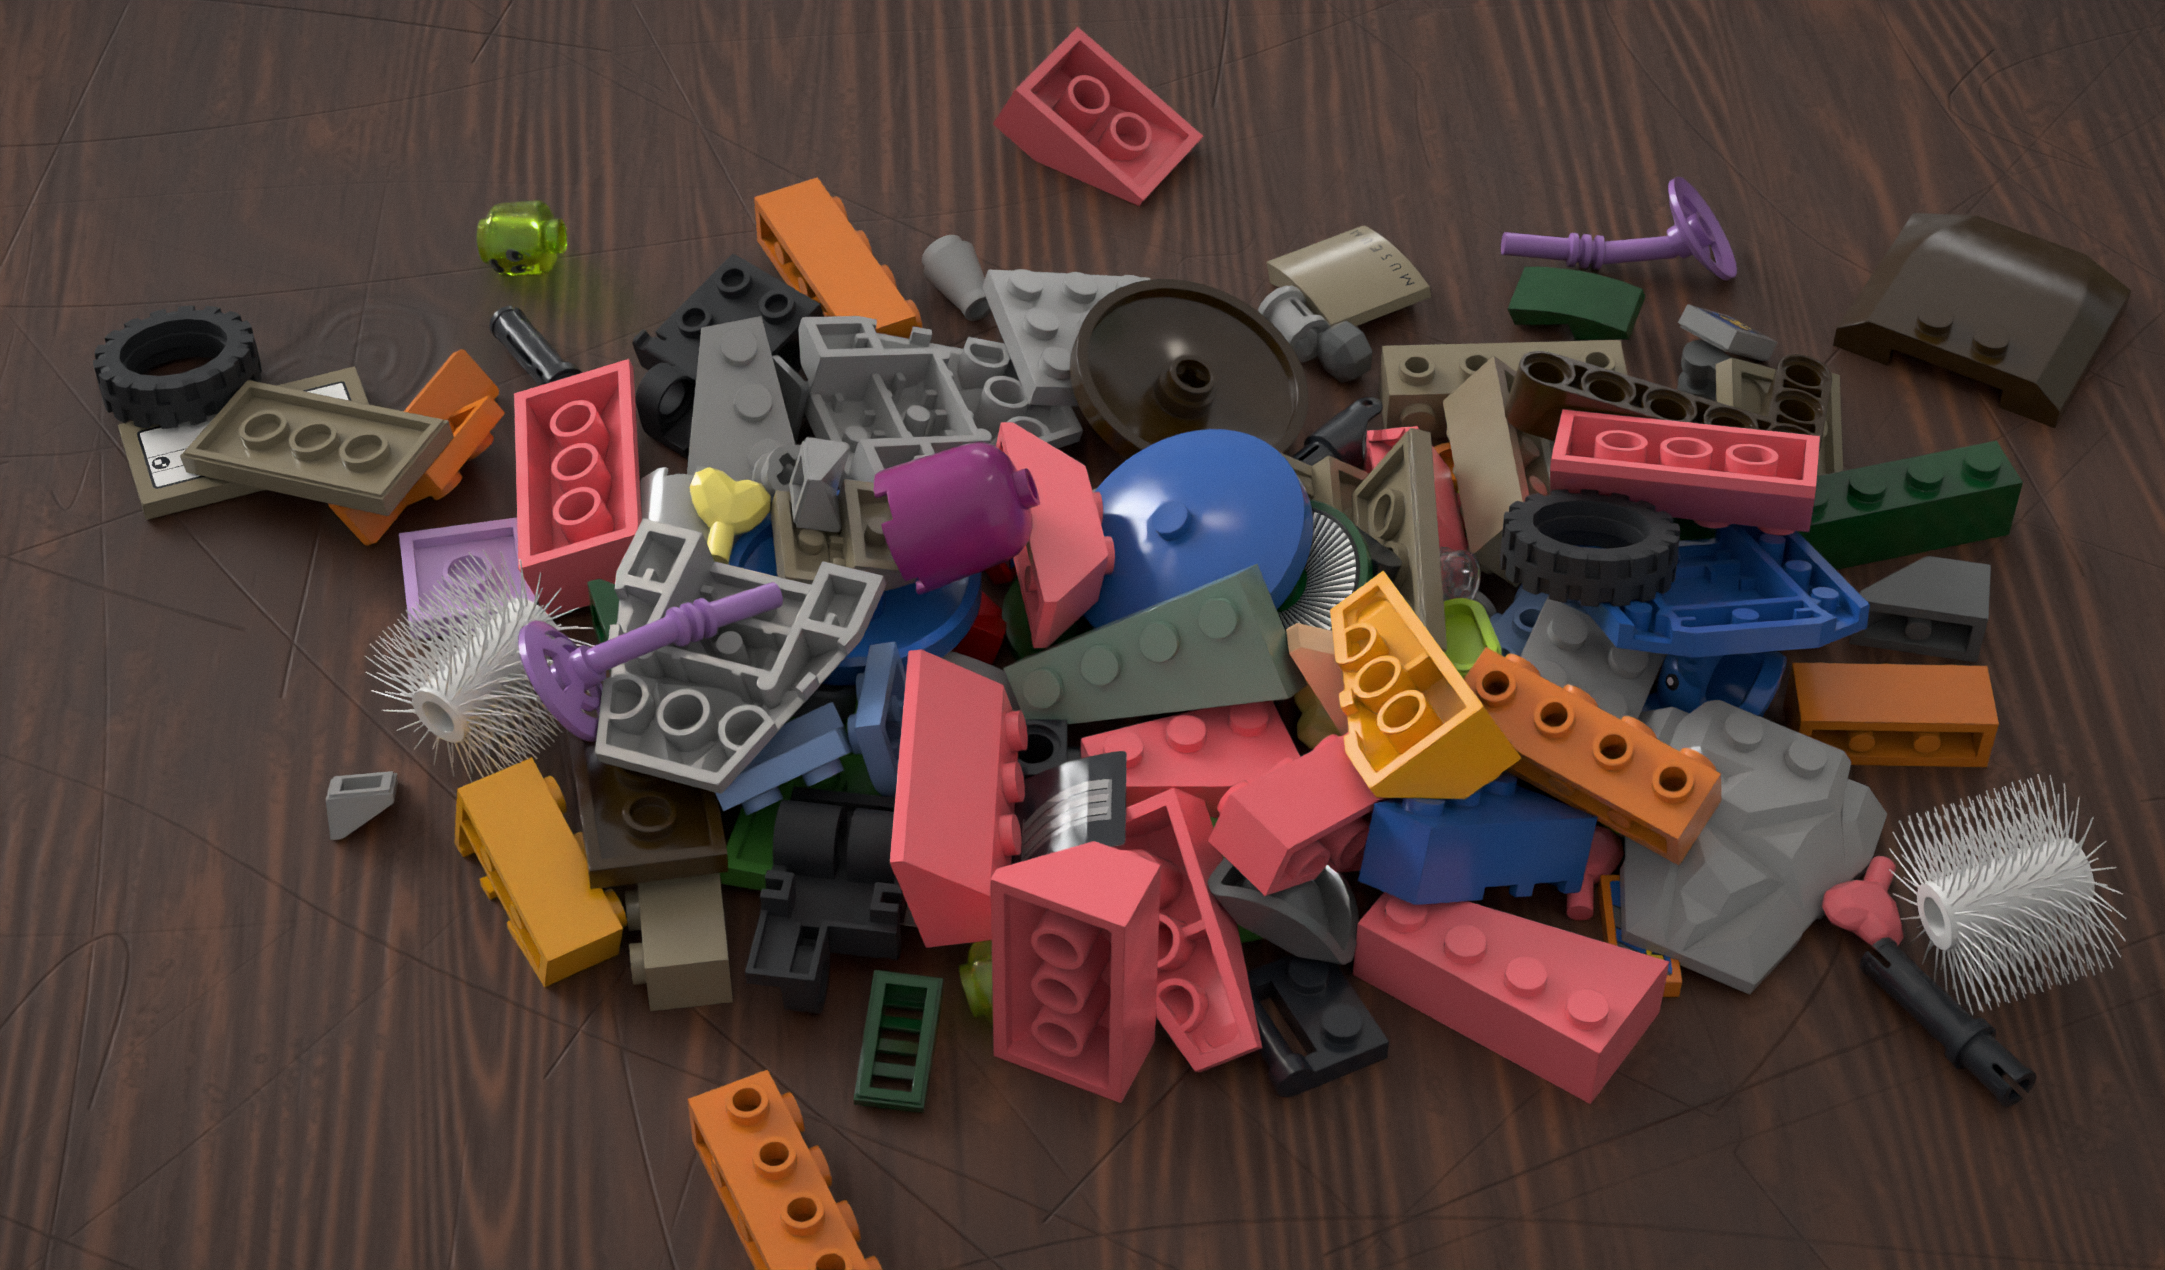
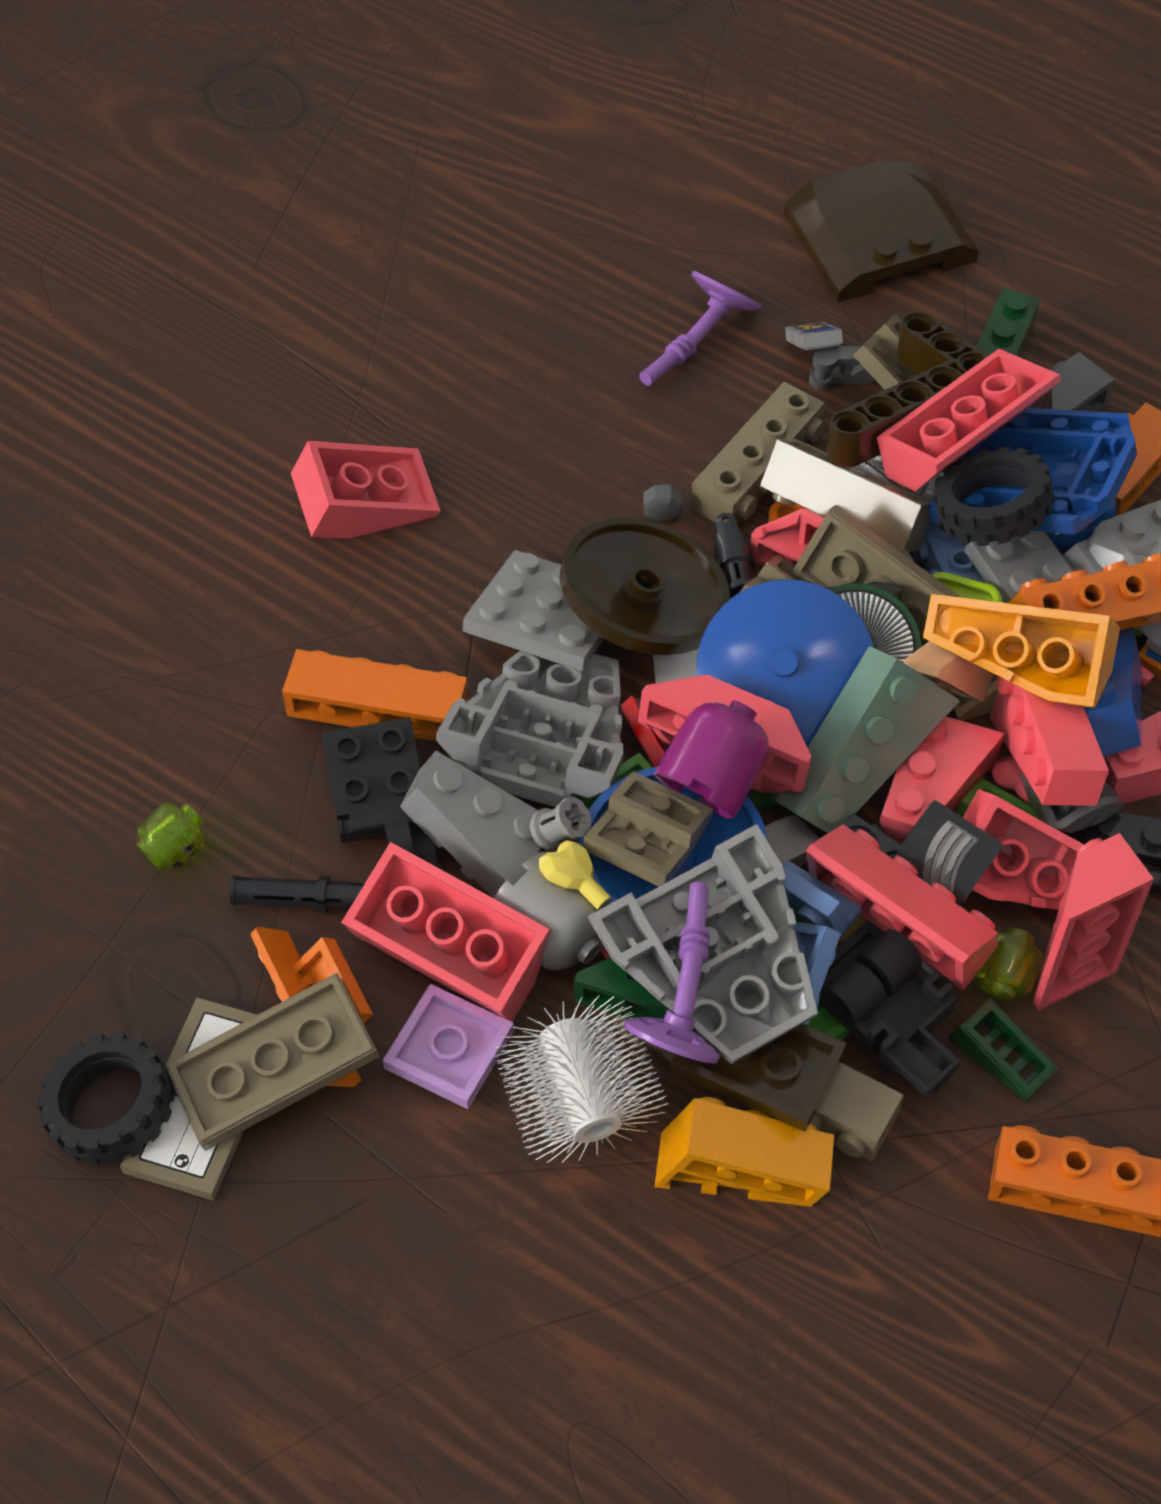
camera: 50 degrees left, 10 degrees up
(357, 799) = (583, 1217): light grey slope -> none
(816, 484) = (610, 811): light grey slope -> none
(957, 274) = (426, 637): light grey cone -> none
(1291, 316) = (617, 506): light grey bush -> none
(1351, 277) = (604, 463): dark tan slope -> none
(1586, 301) = (720, 378): dark green slope -> none

